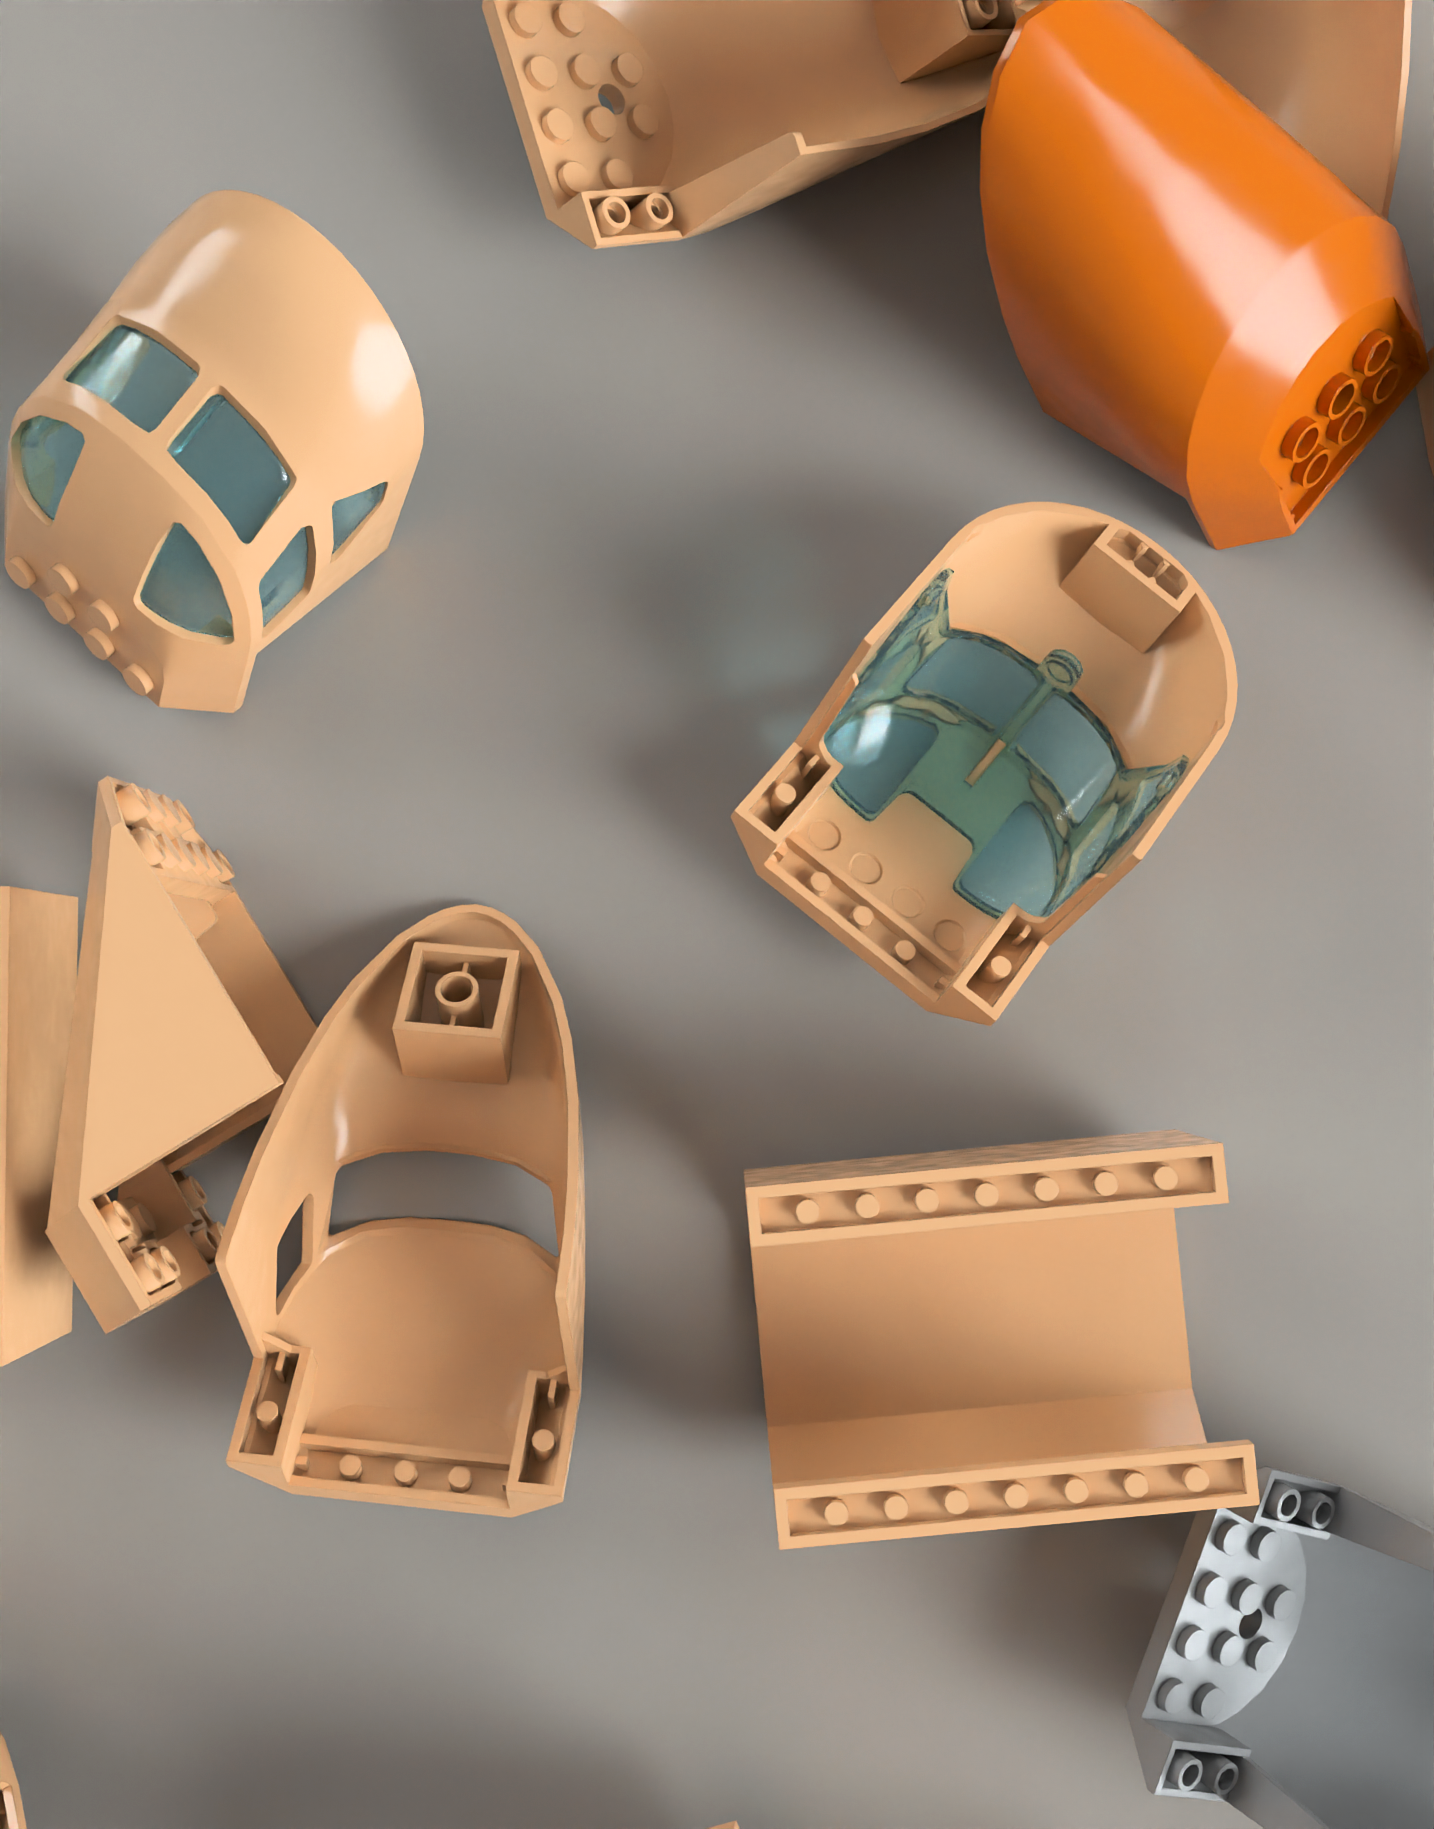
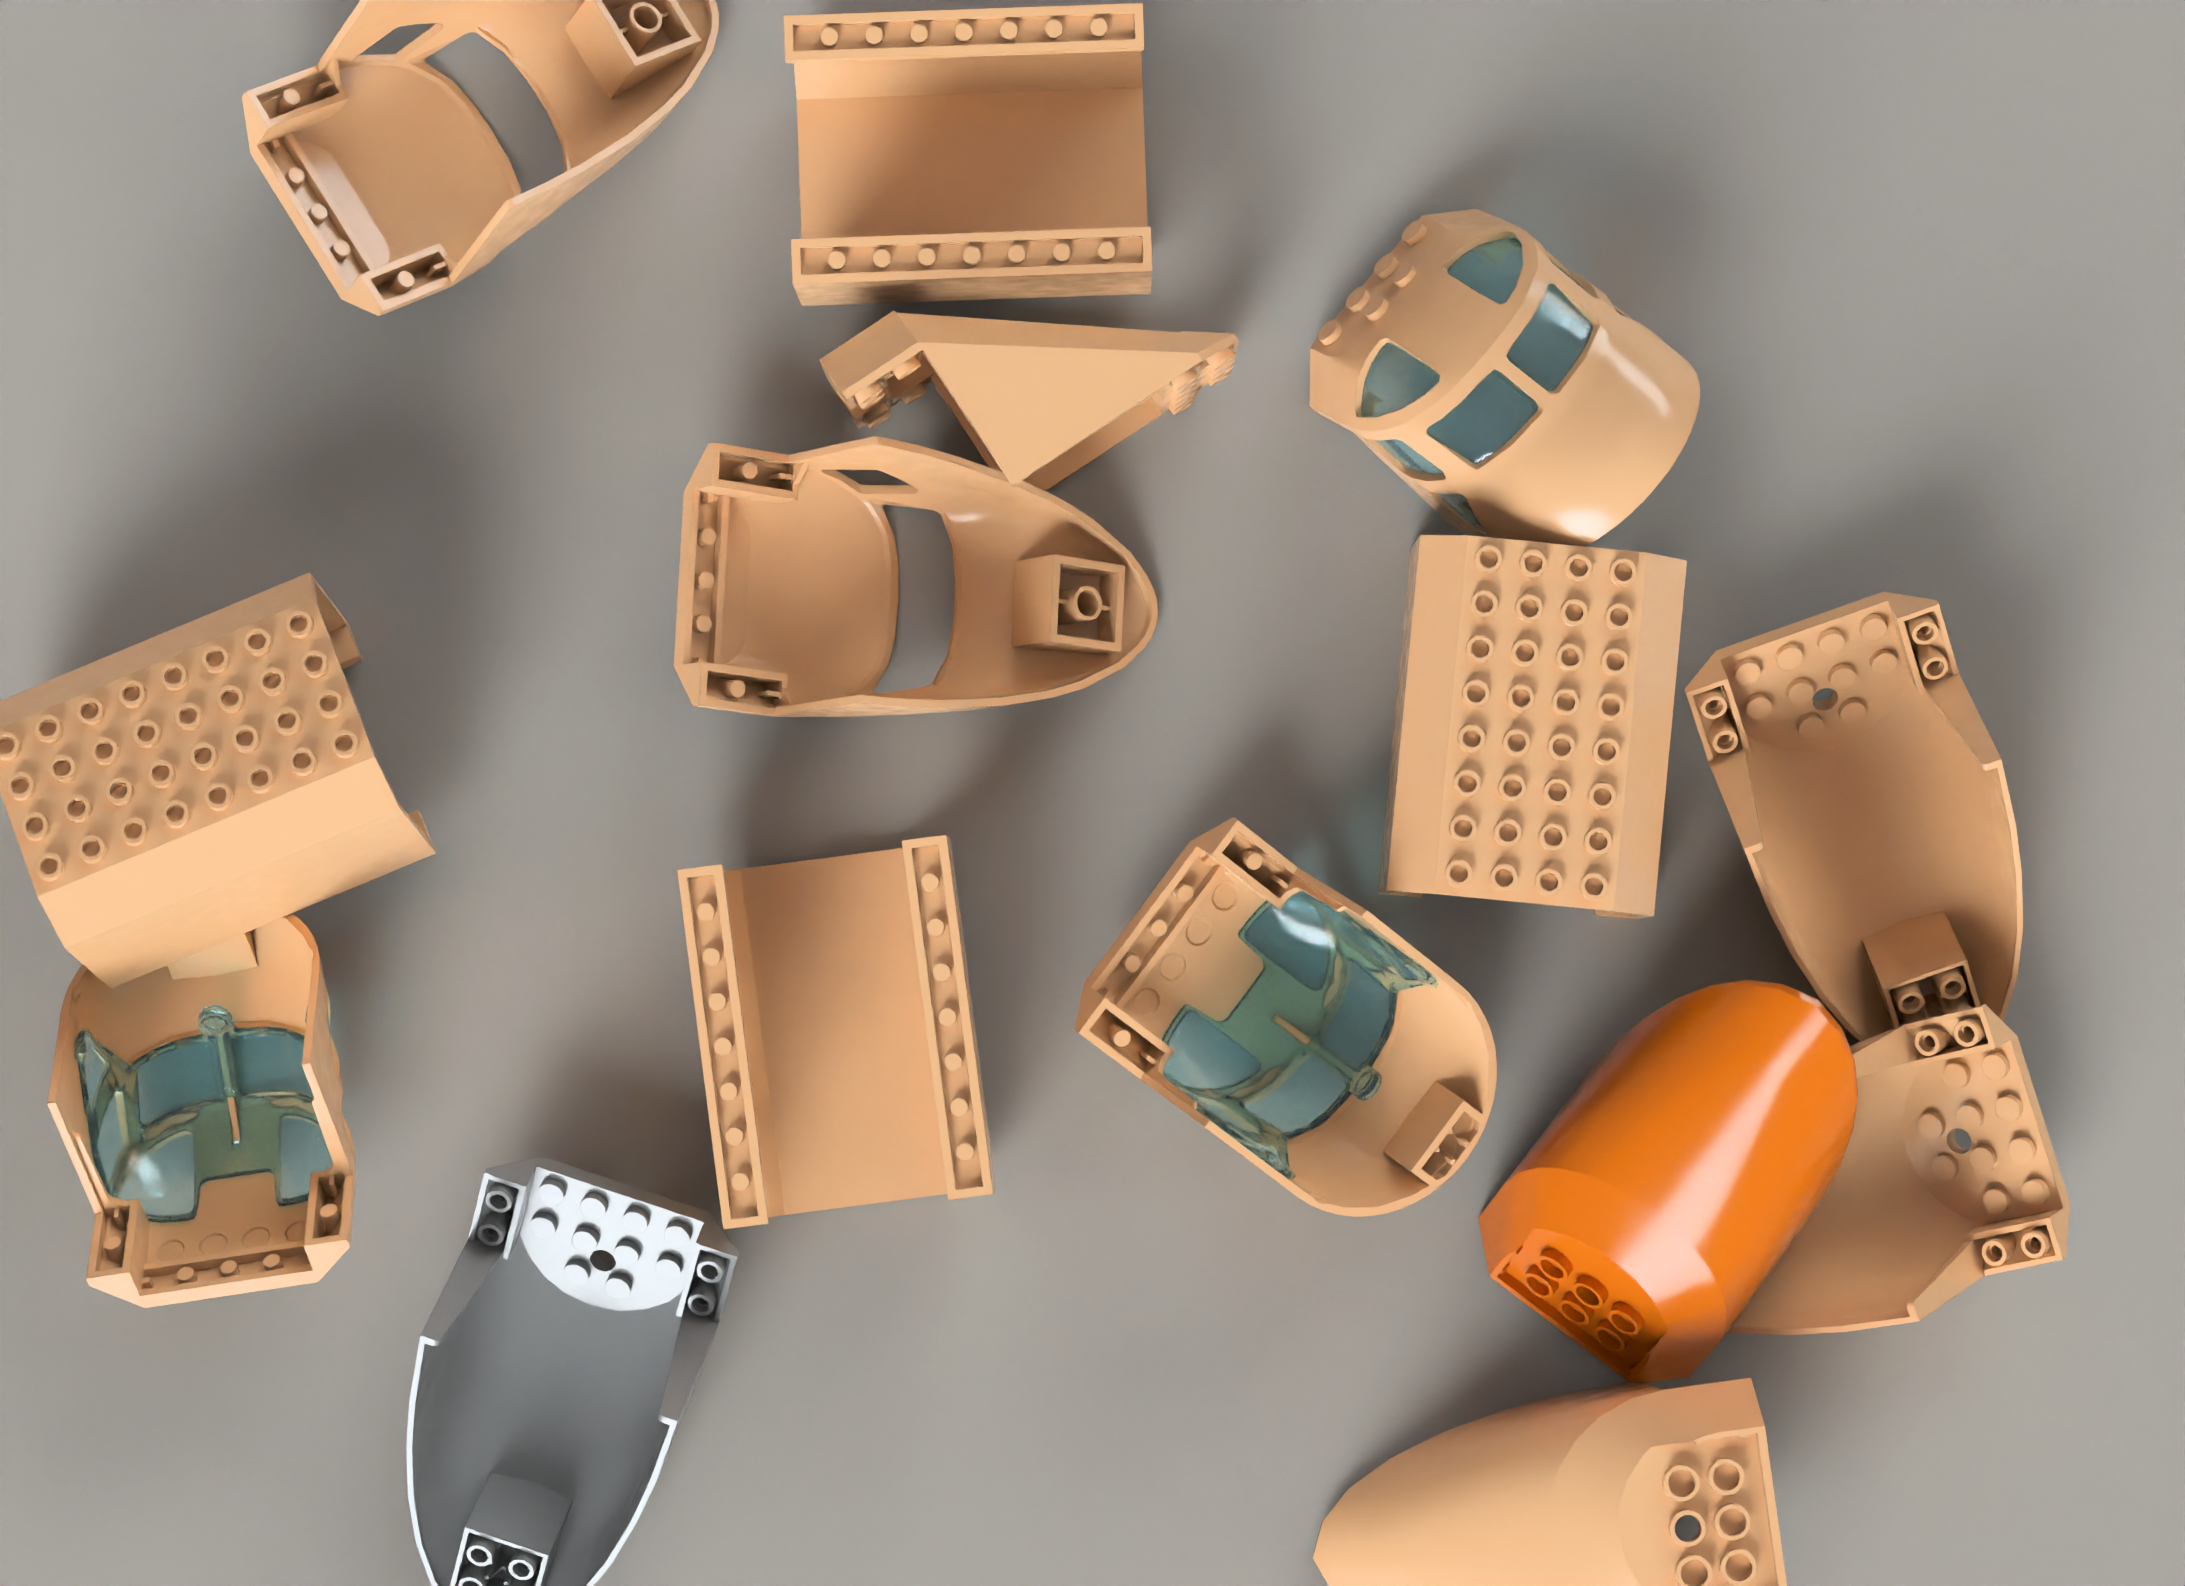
camera: 85 degrees right, 0 degrees up
(625, 437) = (1533, 724): none -> light nougat panel

